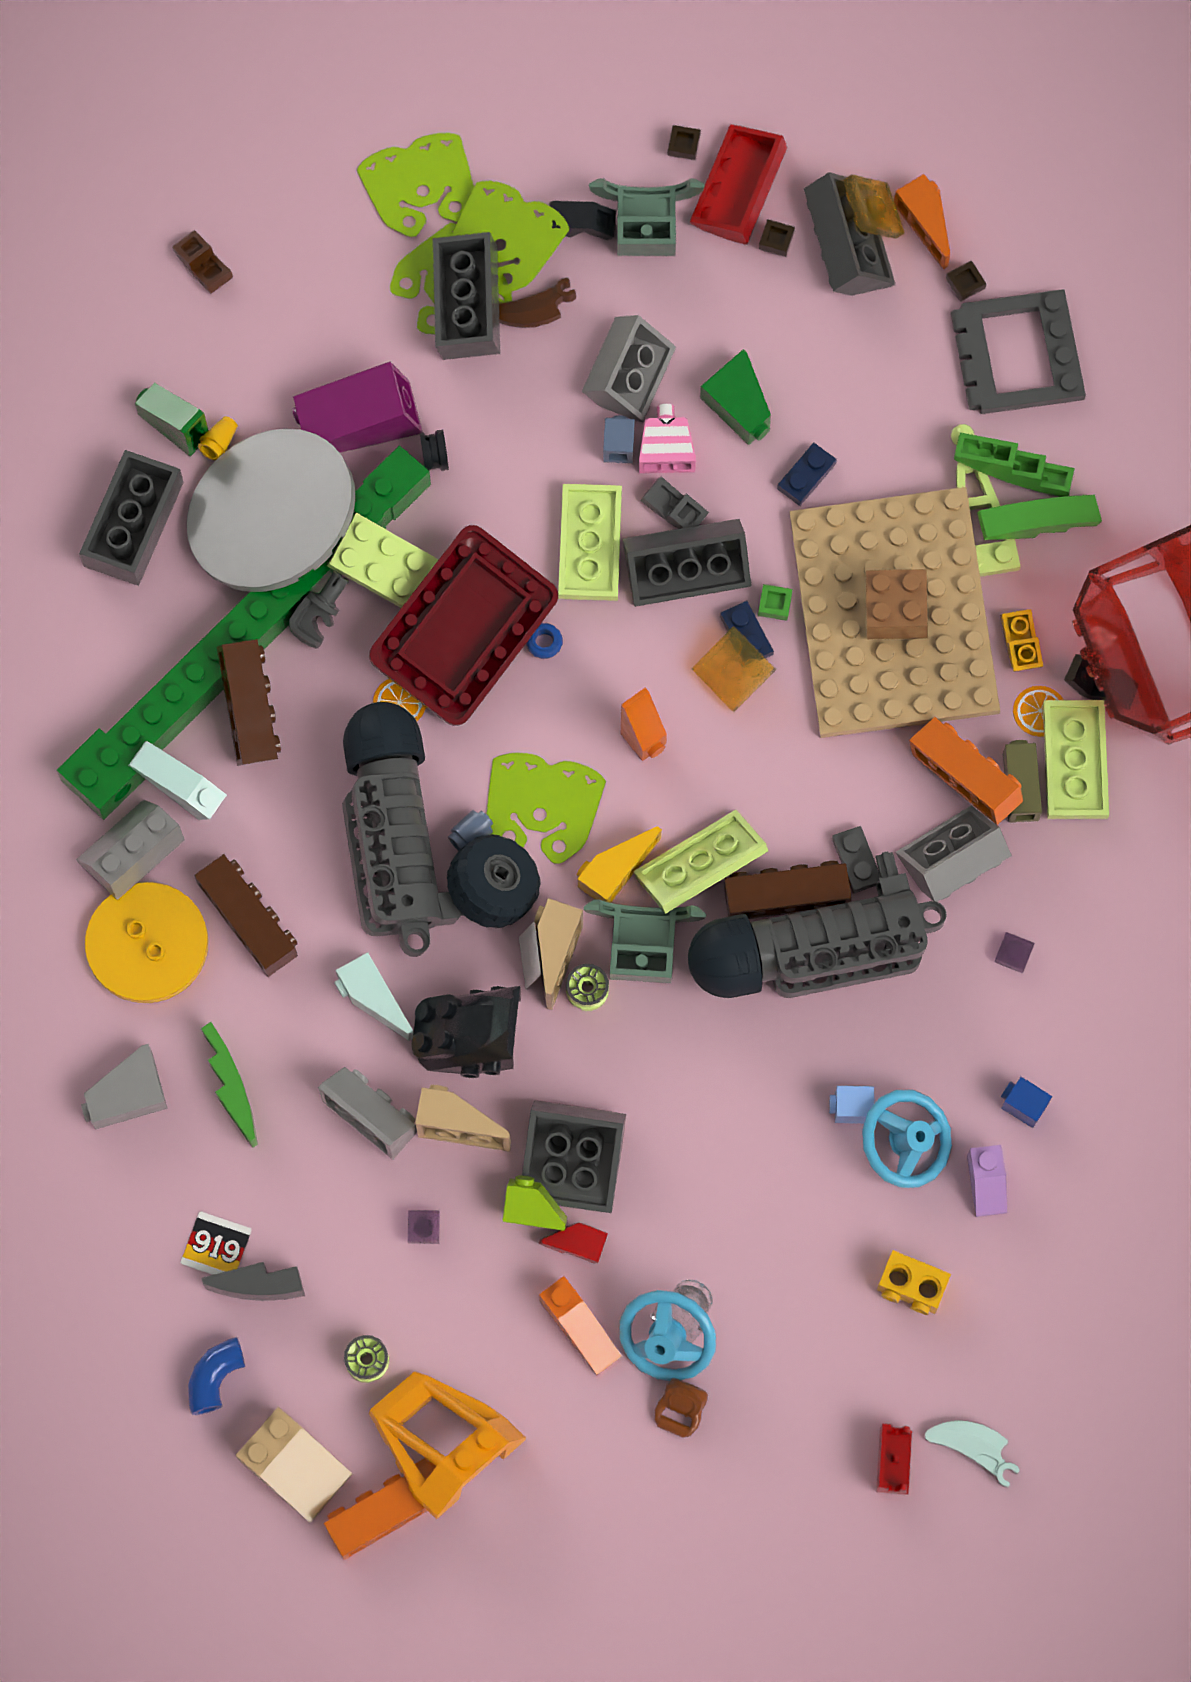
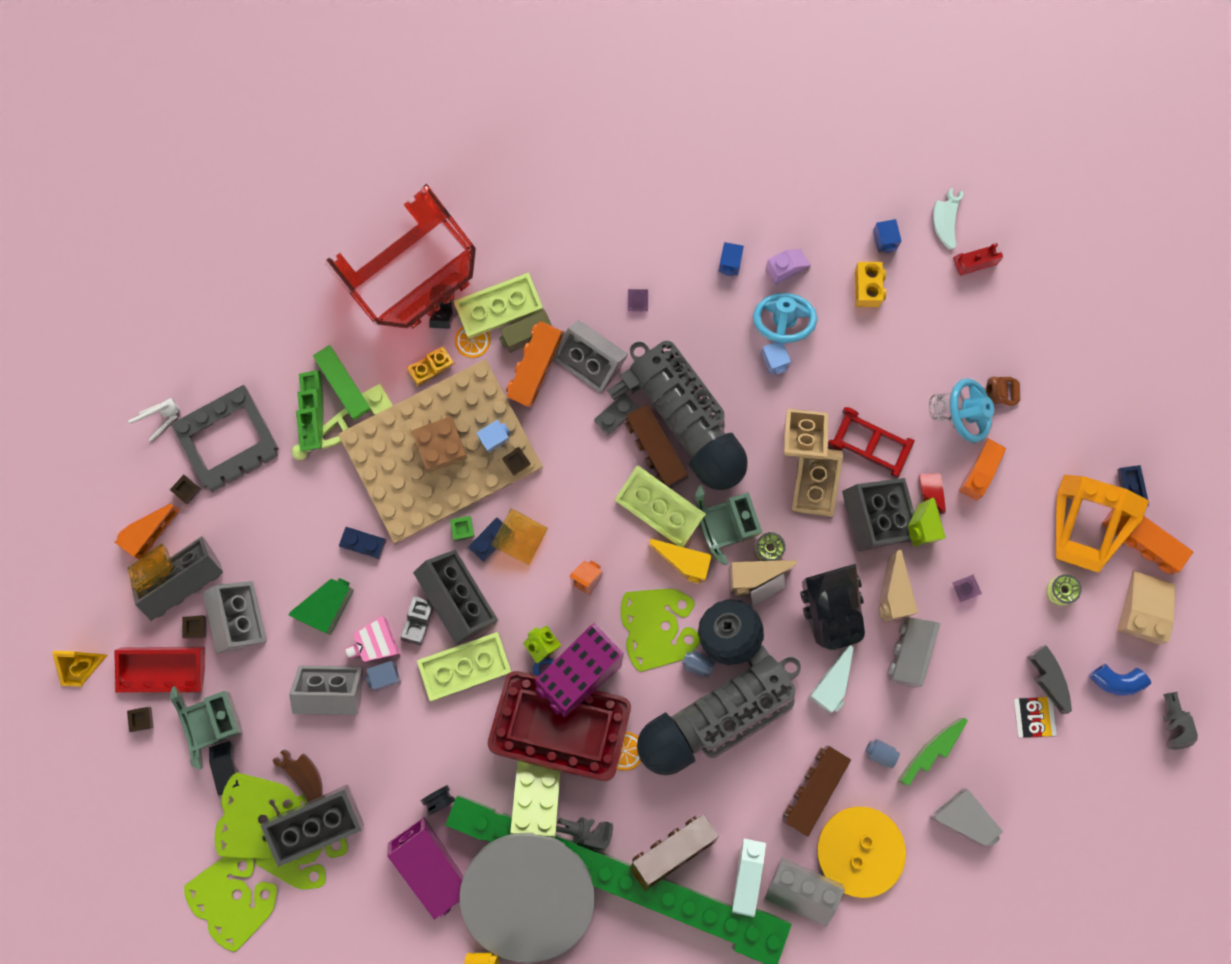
camera: 110 degrees left, 5 degrees up
(126, 1430) = (1181, 719): none -> dark grey piece
(256, 1018) = (882, 753): none -> sand blue brick
(469, 1527) = (1132, 479): none -> dark blue plate
(522, 671) = (579, 670): none -> magenta slope
(579, 643) = (541, 643): none -> lime brick
(656, 1087) = (817, 484): none -> tan slope
(693, 1140) = (852, 415): none -> red piece
(719, 1085) = (806, 434): none -> tan slope
(770, 289) = (234, 616): none -> light grey slope
(782, 89) = (76, 667): none -> yellow slope
(836, 696) = (516, 461): none -> dark brown plate
(882, 677) = (493, 435): none -> light blue brick
(977, 1340) = (887, 236): none -> blue brick
(1088, 291) = (166, 408): none -> white plant

